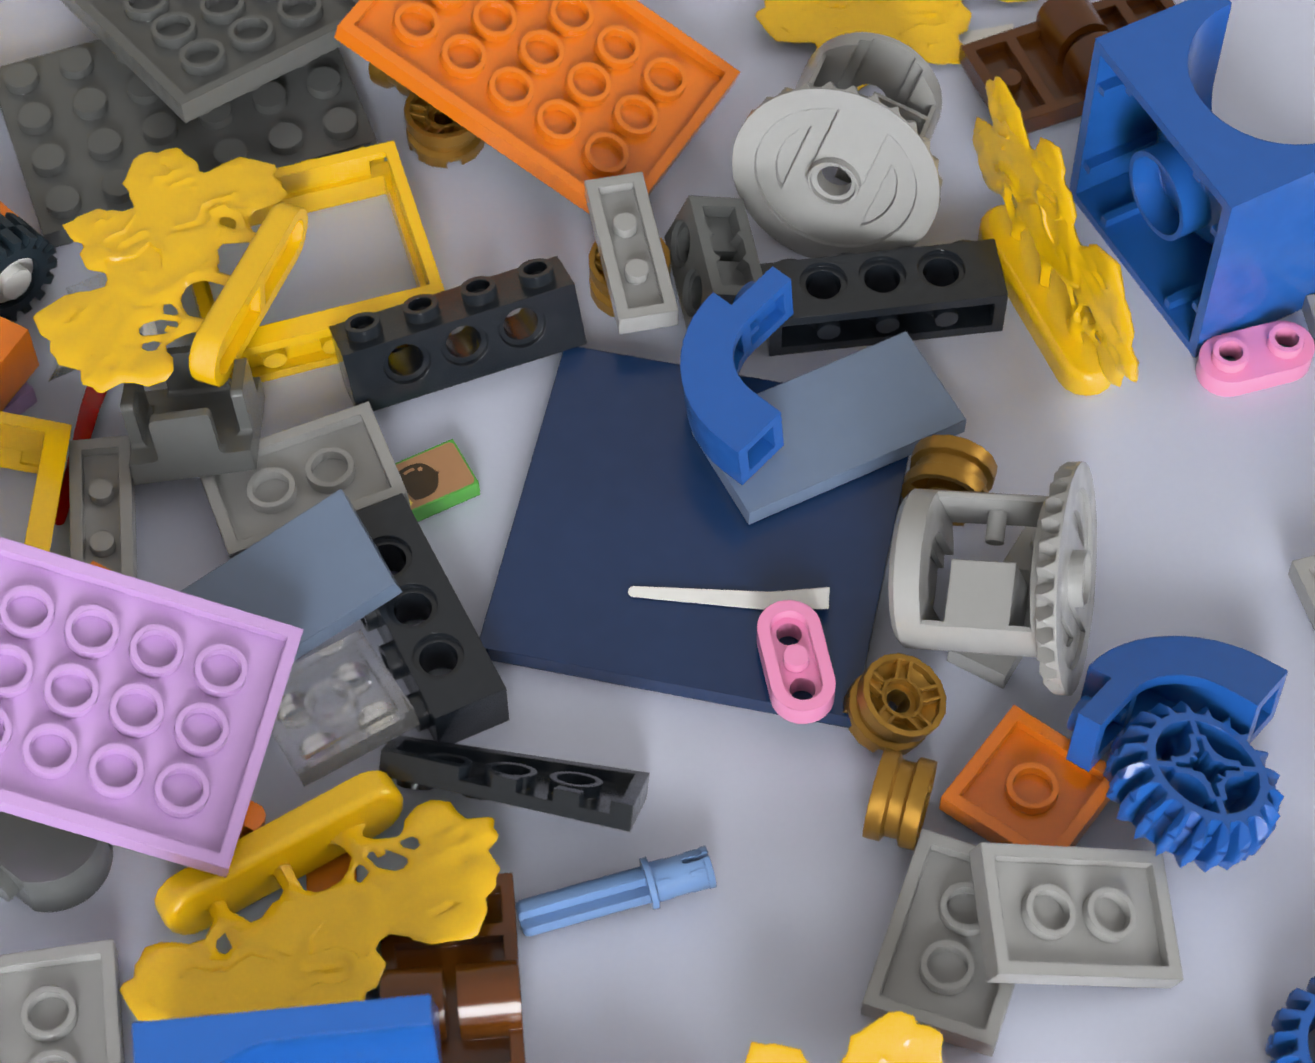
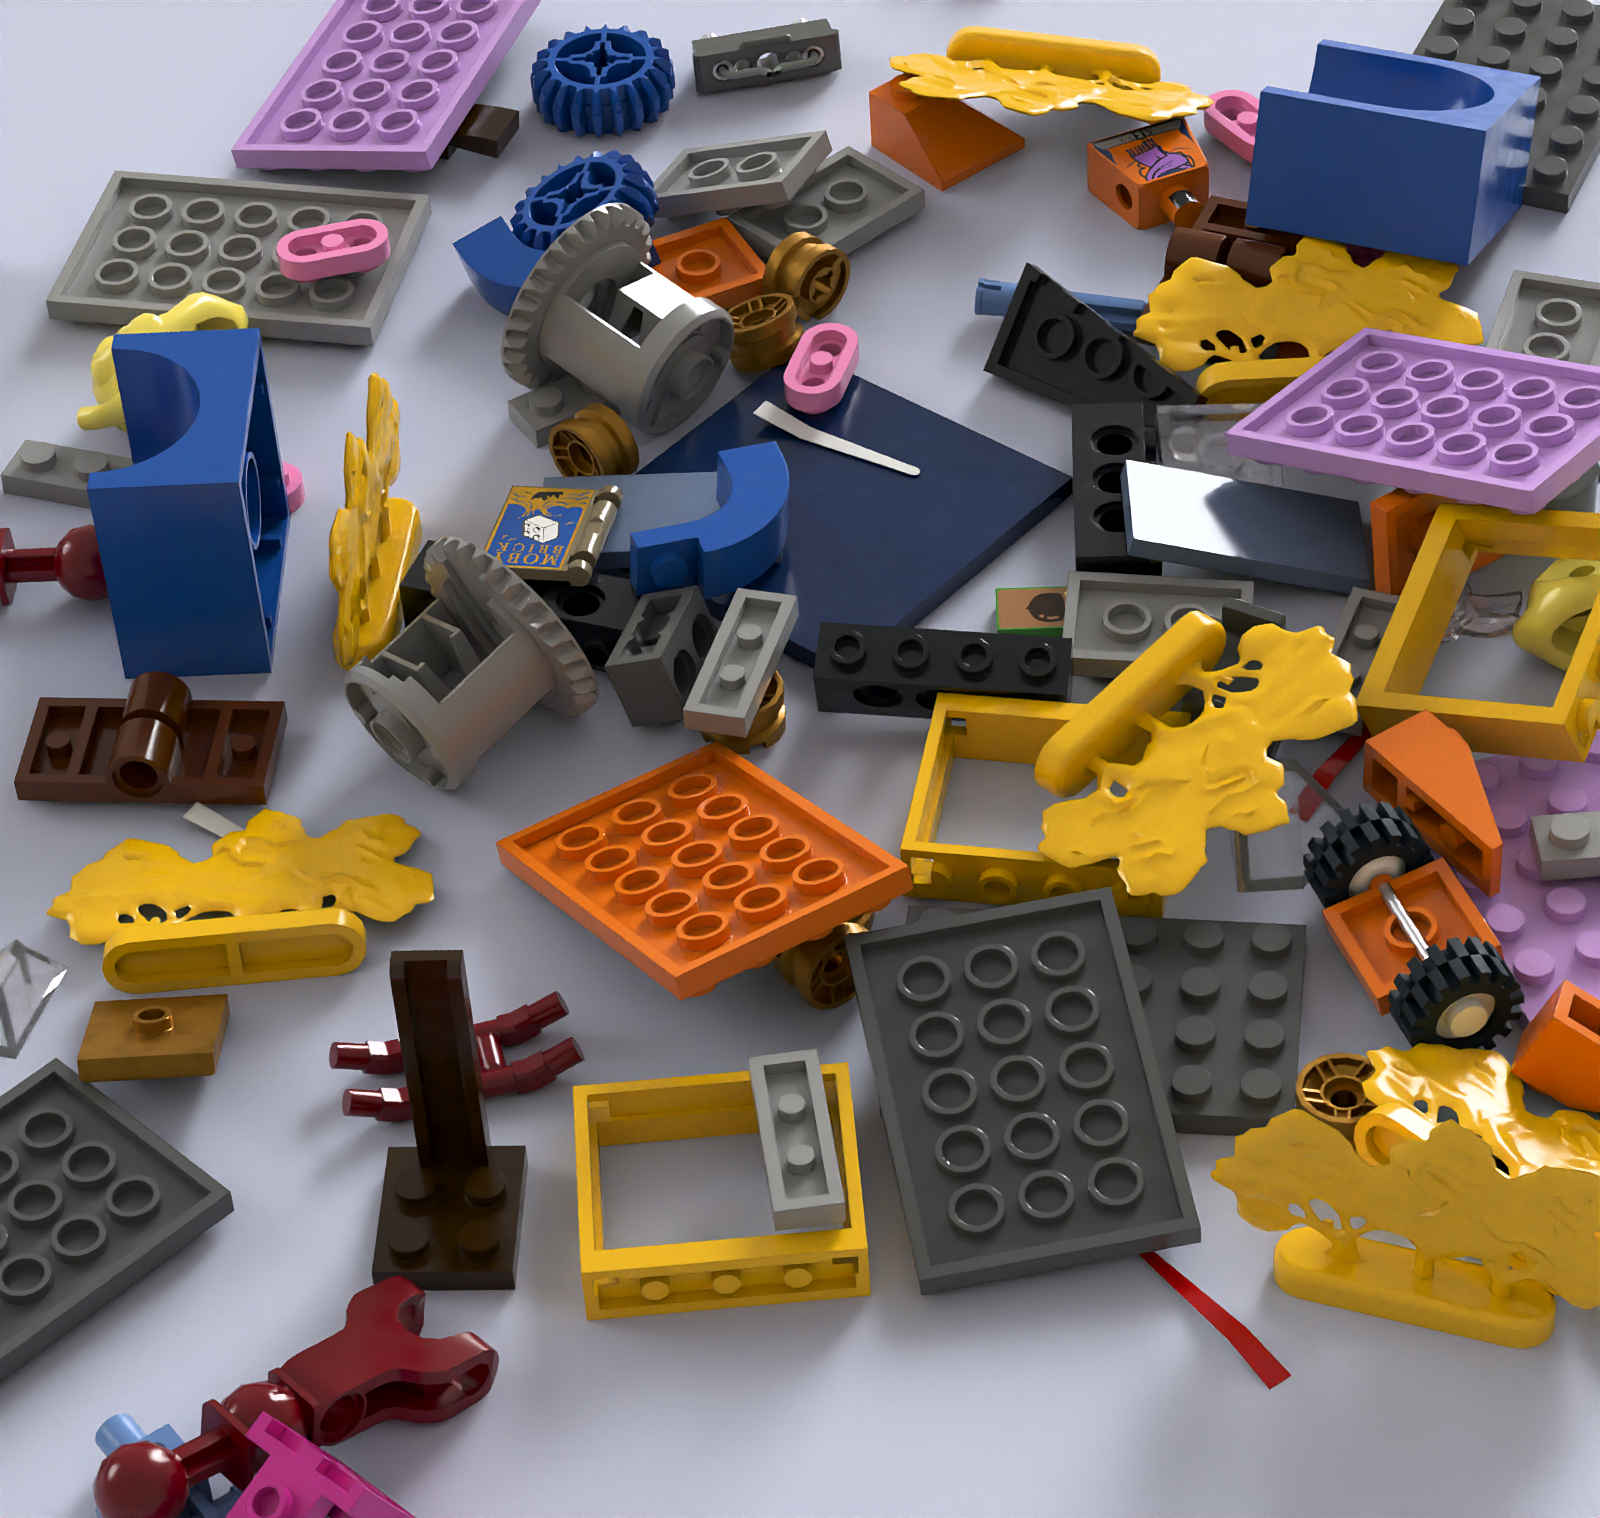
camera: 150 degrees left, 15 degrees down
(901, 334) = (554, 531): none -> piece

